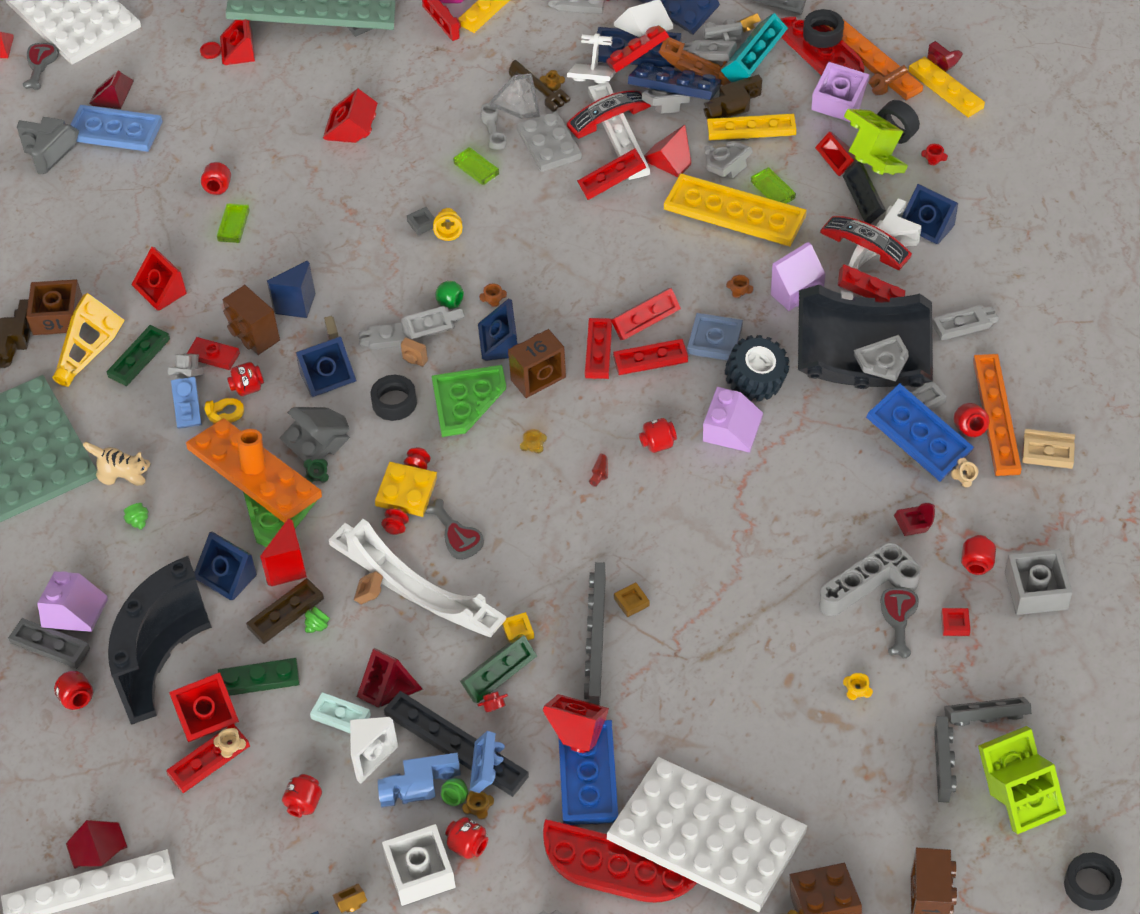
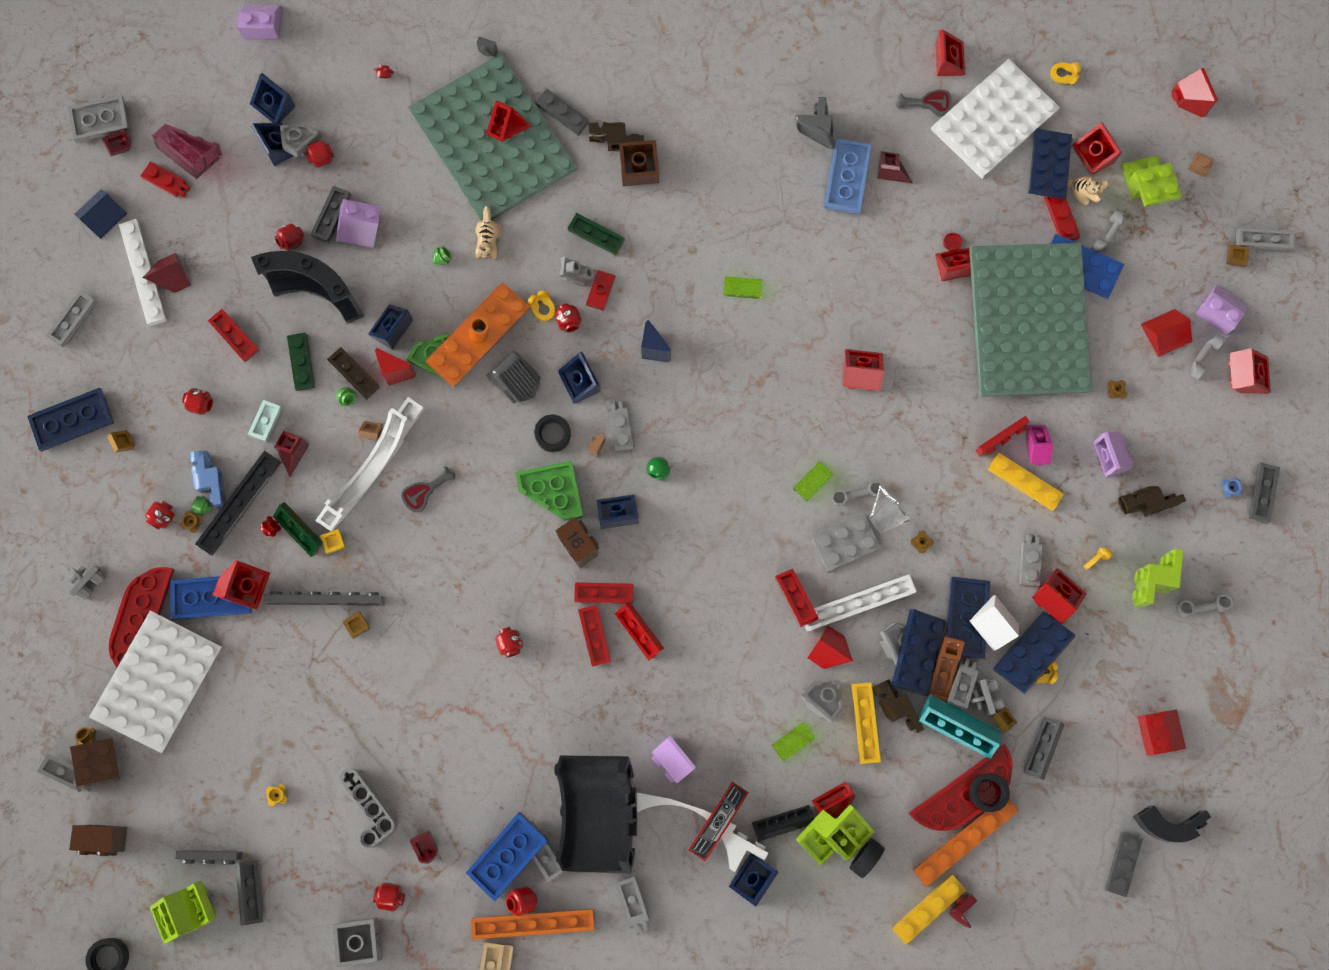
camera: 85 degrees right, 25 degrees up
(98, 317) = (629, 193): yellow plate -> none
(159, 280) = (672, 238): red slope -> none
(186, 402) = (544, 276): medium blue plate -> none
(204, 707) = (265, 327): red slope -> none
(215, 178) = (787, 266): red head -> none
(227, 736) = (231, 346): tan plate -> none
(251, 320) = (622, 313): reddish brown brick -> none
(321, 465) = (478, 386): dark green plate -> none
(331, 327) = (618, 379): dark tan tile -> none
(371, 744) = (230, 439): white slope -> none
(405, 490) = (459, 450): yellow plate -> none
(418, 864) = (138, 484): white brick -> none
(421, 220) = (744, 440): dark grey plate -> none
(430, 322) = (625, 456): light grey hinge -> none
(447, 230) = (738, 461): yellow piece -> none
(484, 761) = (203, 522): medium blue plate -> none
(493, 294) = (661, 498): dark orange plate -> none
(533, 436) = (504, 544): clear yellow plate -> none
(553, 99) = (900, 544): dark brown hinge -> none
(586, 120) = (878, 591): slope -> none
(600, 74) = (929, 577): white plate -> none
(600, 470) = (481, 598): clear red bar -> none
(636, 48) = (951, 616): red plate -> none
(714, 336) = (616, 689): sand blue plate -> none
(731, 420) = (525, 703): lavender slope -> none
(735, 209) = (762, 707): yellow plate -> none
(739, 286) = (675, 705): dark orange plate -> none
(757, 367) = (573, 722): black wheel -> none
(839, 90) = (905, 805): lavender slope -> none
(867, 285) = (663, 823): red plate -> none
(883, 81) = (929, 850): dark orange bar -> none
(883, 358) = (576, 829): light grey plate -> none
(897, 607) = (346, 829): dark grey piece -> none
(934, 154) = (838, 885): red plate -> none
(955, 621) = (329, 874): red plate -> none
(971, 472) = (472, 892): tan plate -> none

